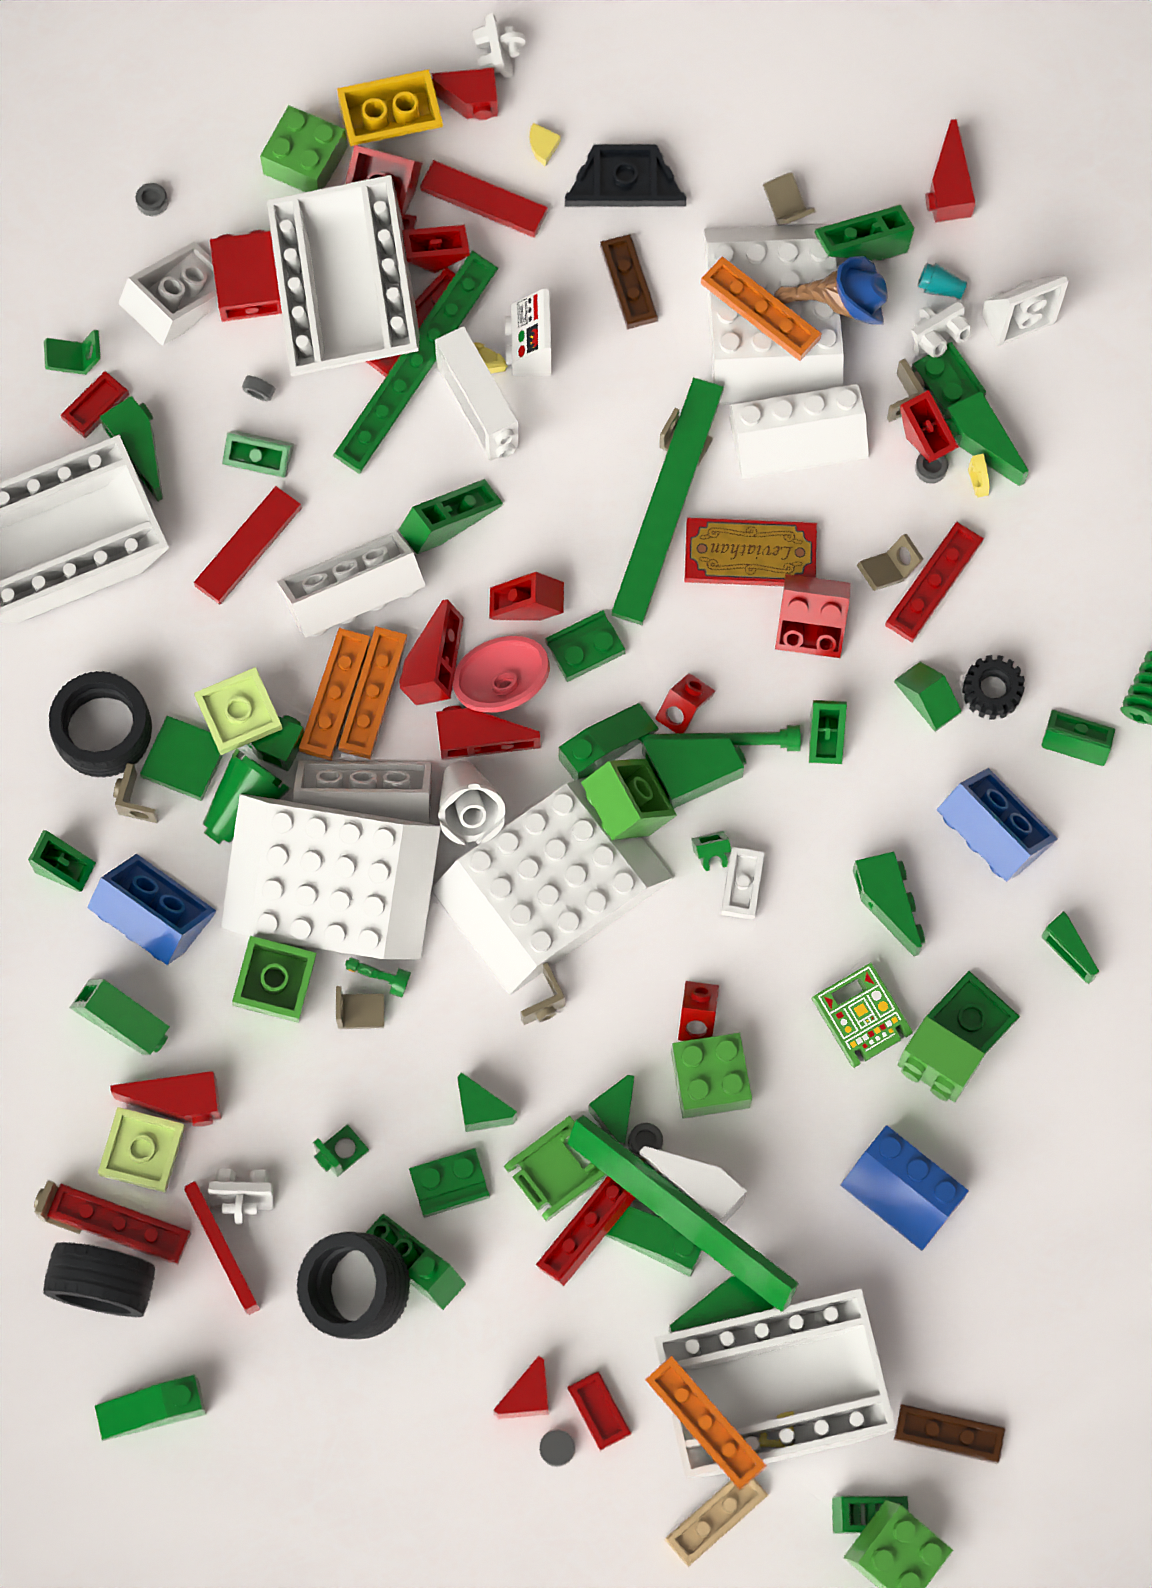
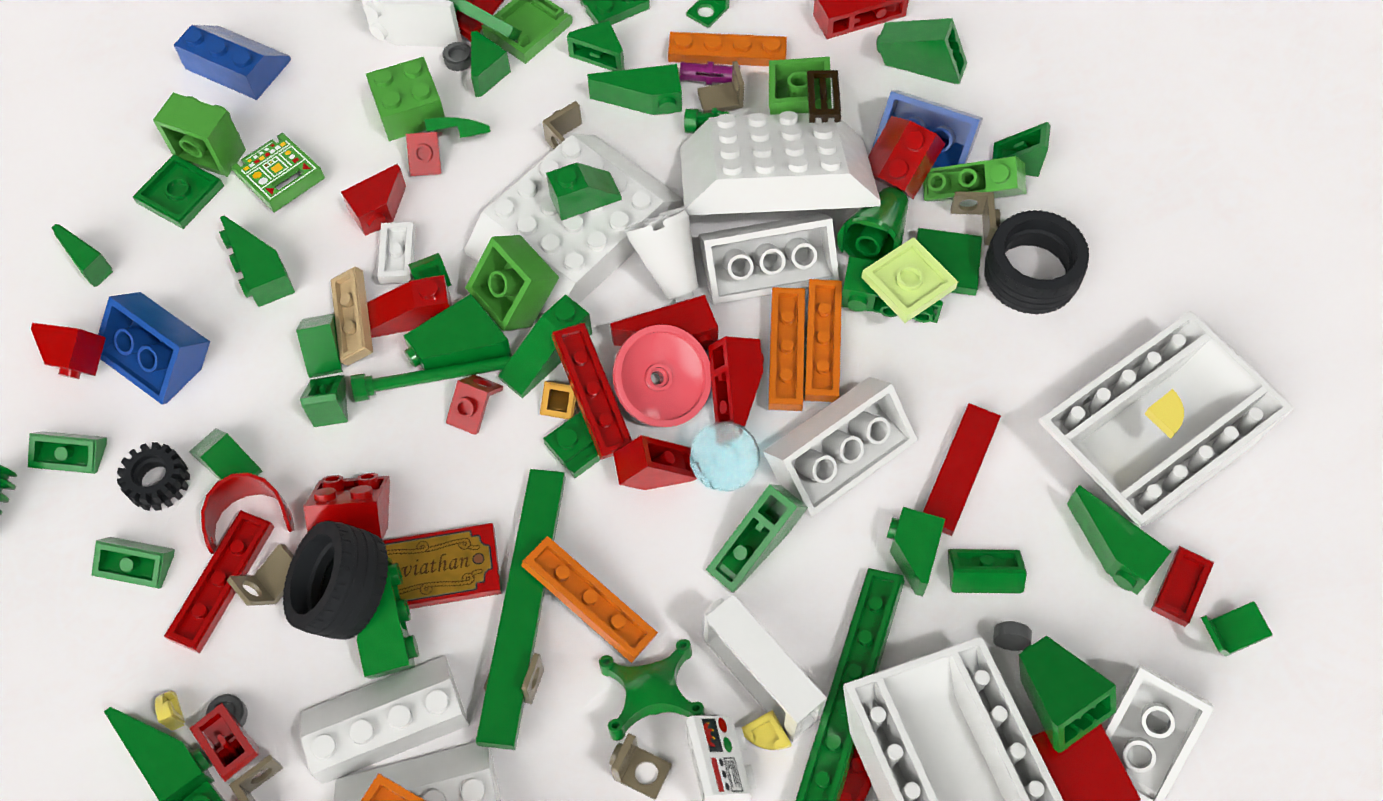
camera: 170 degrees right, 10 degrees down
(53, 520) = (1167, 413): none -> light yellow tile
(119, 832) = (1002, 176): none -> bright green slope
(192, 868) = (904, 155): none -> red slope
(239, 324) = (1065, 692): none -> green slope
(265, 906) = (823, 113): none -> dark brown tile
(313, 478) = (915, 545): none -> green slope
(335, 1082) = (725, 48): none -> orange plate
(364, 1047) = (708, 72): none -> magenta pin
(437, 1031) = (640, 89): none -> green slope
(461, 588) = (724, 456): none -> clear light blue tile
(538, 868) = (580, 189): none -> green slope
(571, 672) = (591, 389): none -> red tile
(572, 403) = (650, 689): none -> green piece
(601, 693) = (558, 400): none -> pearl gold slope
(602, 360) = (628, 757): none -> dark tan bracket
(610, 486) = (589, 599): none -> orange plate
(658, 1026) = (465, 126): none -> green slope
(742, 812) = (408, 306): none -> red slope
(759, 948) = (375, 199): none -> red slope
(791, 493) = (385, 641): none -> green slope
(795, 818) = (351, 316): none -> tan tile
(801, 533) = (335, 580): none -> black tyre
(829, 800) = (319, 345): none -> green slope
(900, 654) = (230, 490): none -> red piece
(1013, 616) = (131, 561): none -> green slope
(1078, 834) = (69, 349): none -> red slope

